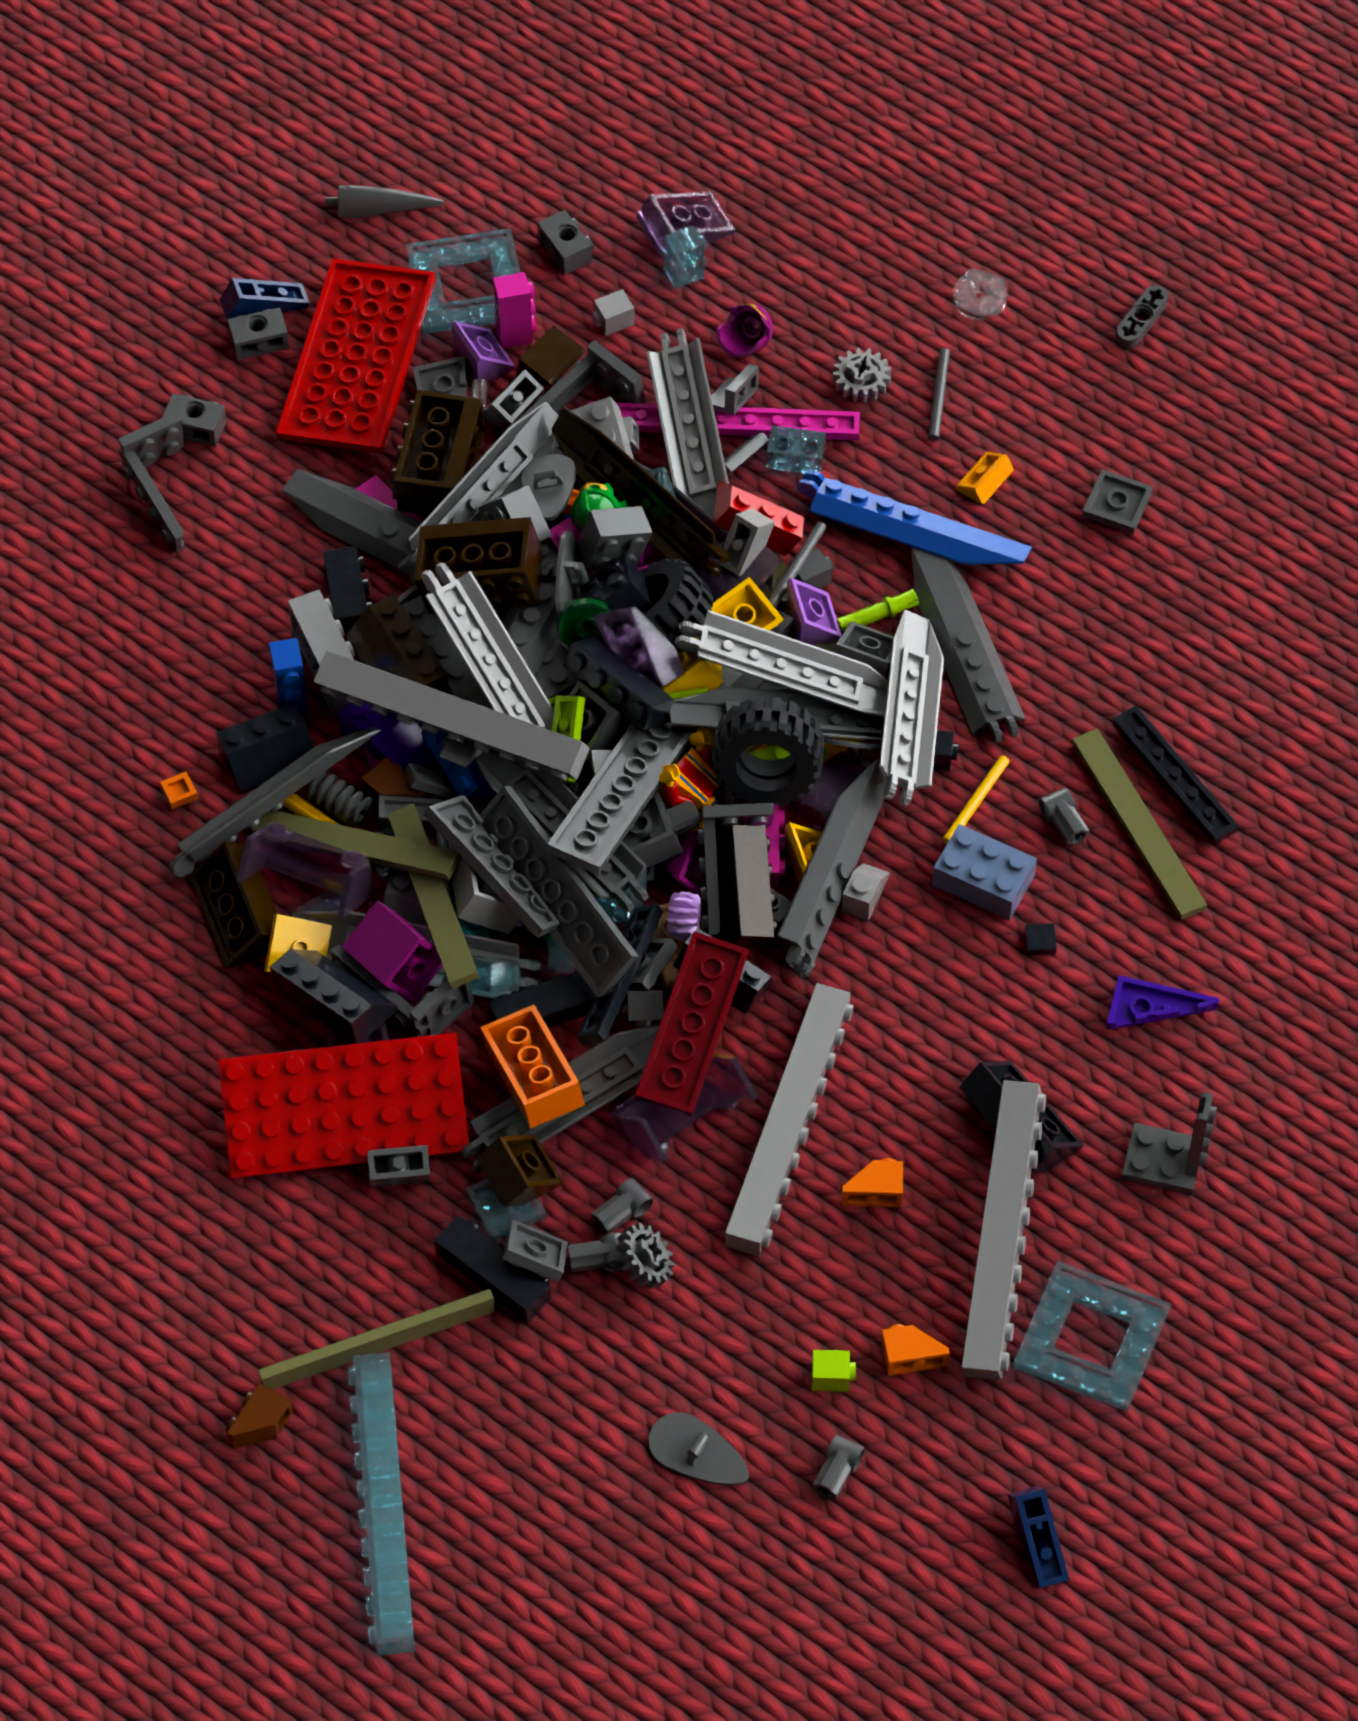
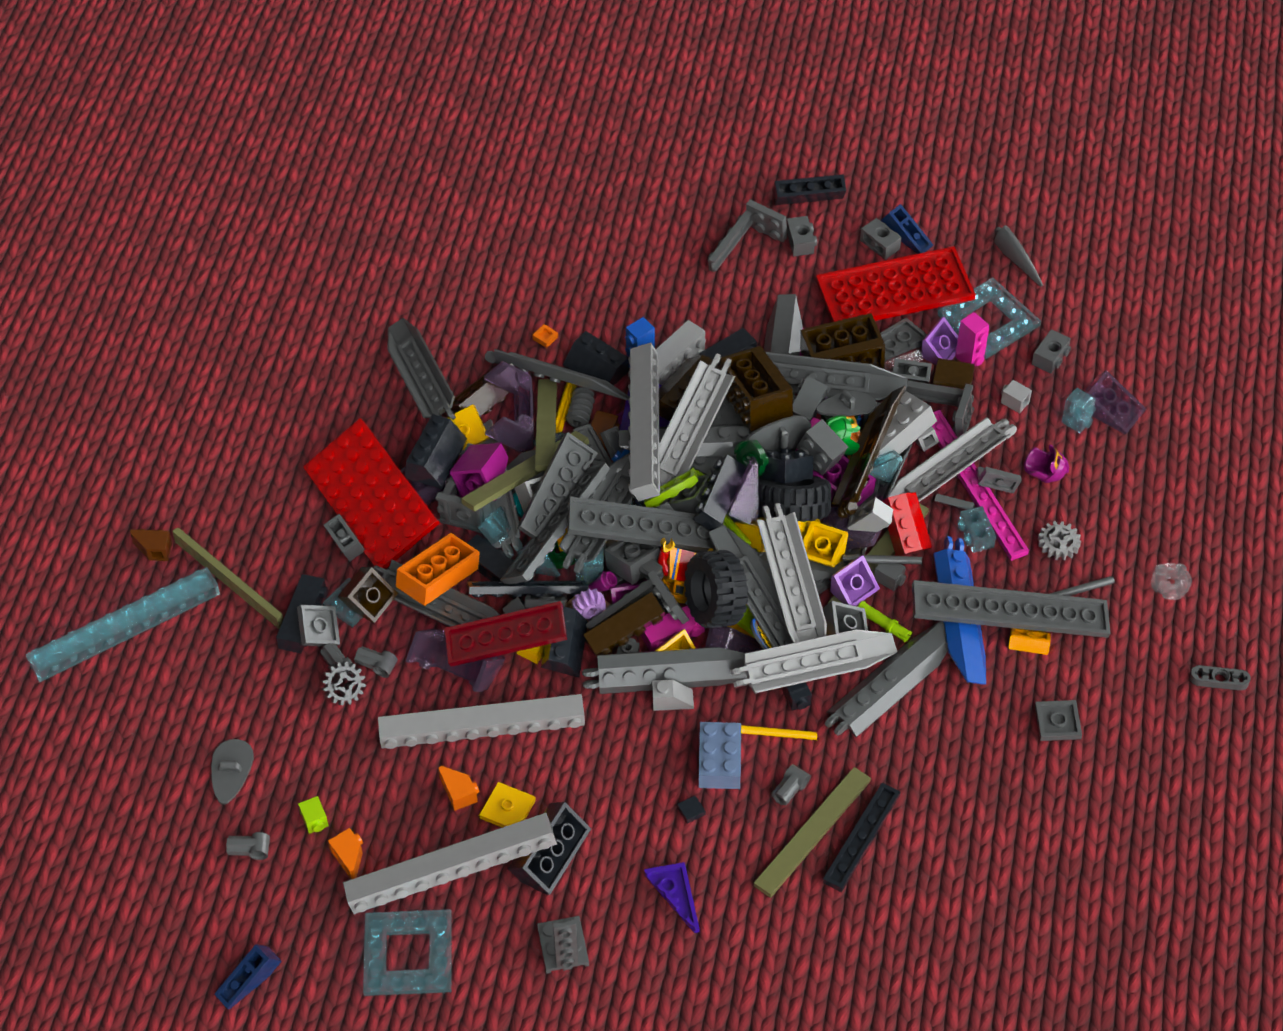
camera: 65 degrees right, 5 degrees down
(123, 372) = (809, 189): none -> black brick
(155, 959) = (419, 370): none -> dark grey hinge
(658, 885) = (604, 582): none -> magenta cone
(932, 1141) = (507, 806): none -> yellow plate
(944, 469) = (1010, 609): none -> dark grey plate

